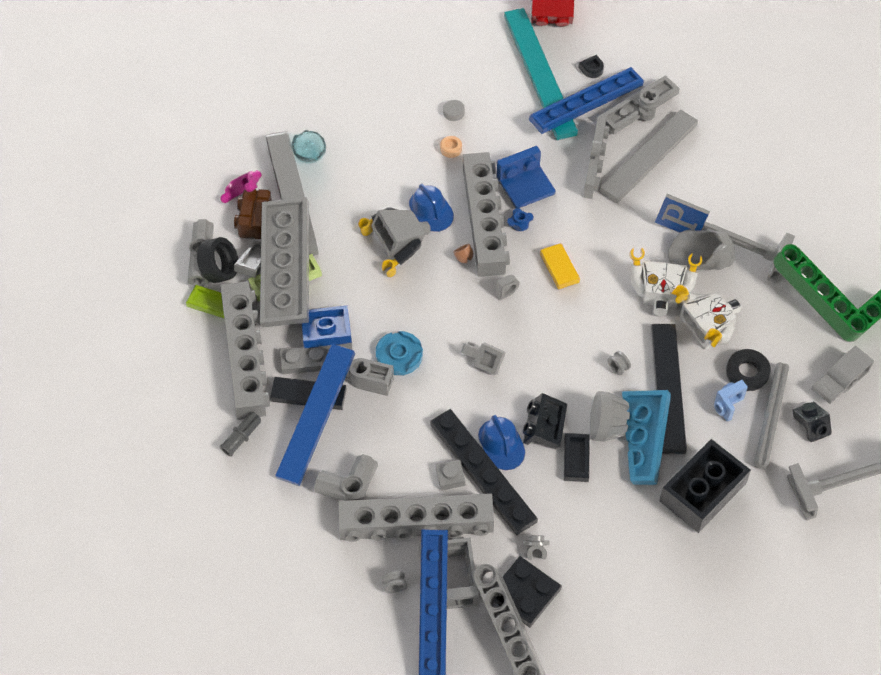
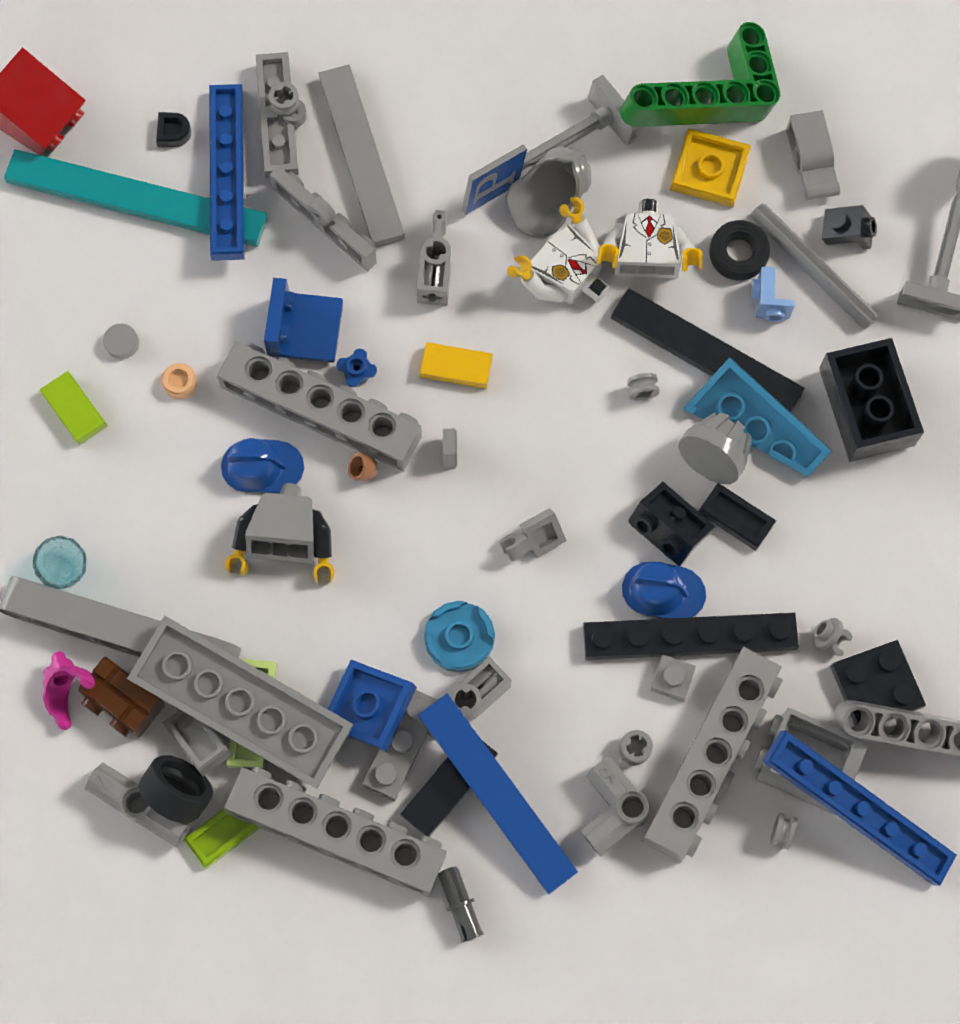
camera: 60 degrees left, 15 degrees up
(393, 469) = (646, 751): none -> light grey bush
(400, 110) = (73, 407): none -> lime tile
(611, 221) = (431, 268): none -> light grey piece
(789, 328) = (710, 167): none -> yellow tile

